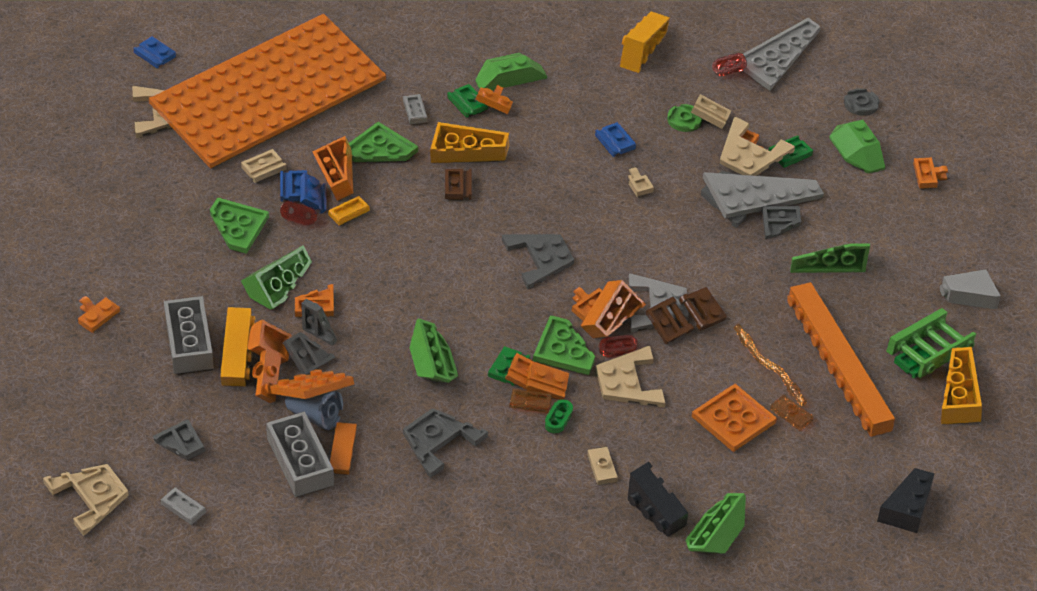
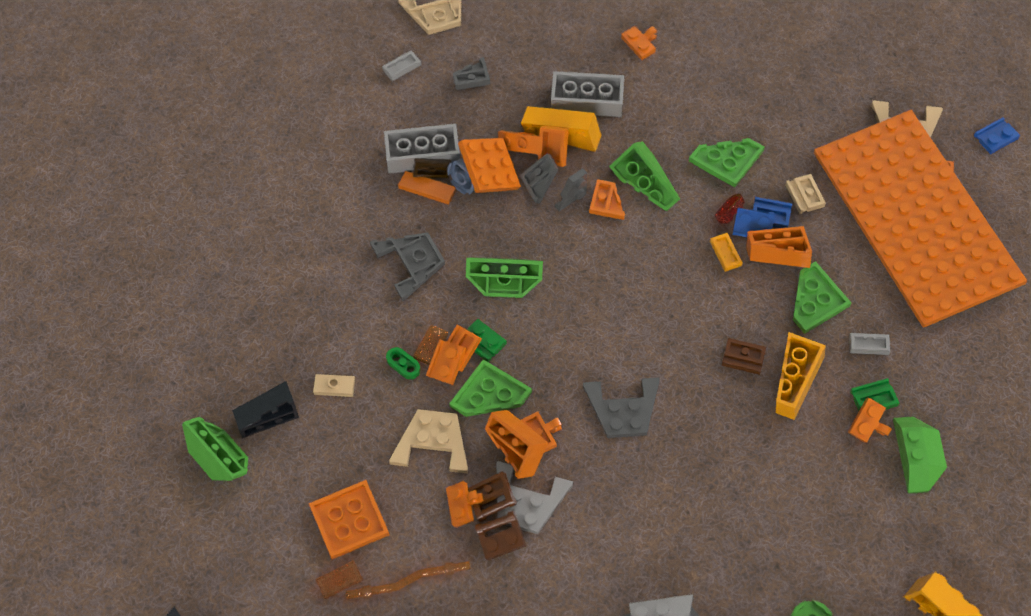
camera: 110 degrees right, 15 degrees up
(324, 442) = (431, 165): none -> dark brown tile
(615, 139) = (784, 530): blue plate -> none
(617, 345) = (476, 442): clear red plate -> none
(639, 184) = (705, 534): tan plate -> none
(683, 342) = (460, 503): none -> orange plate

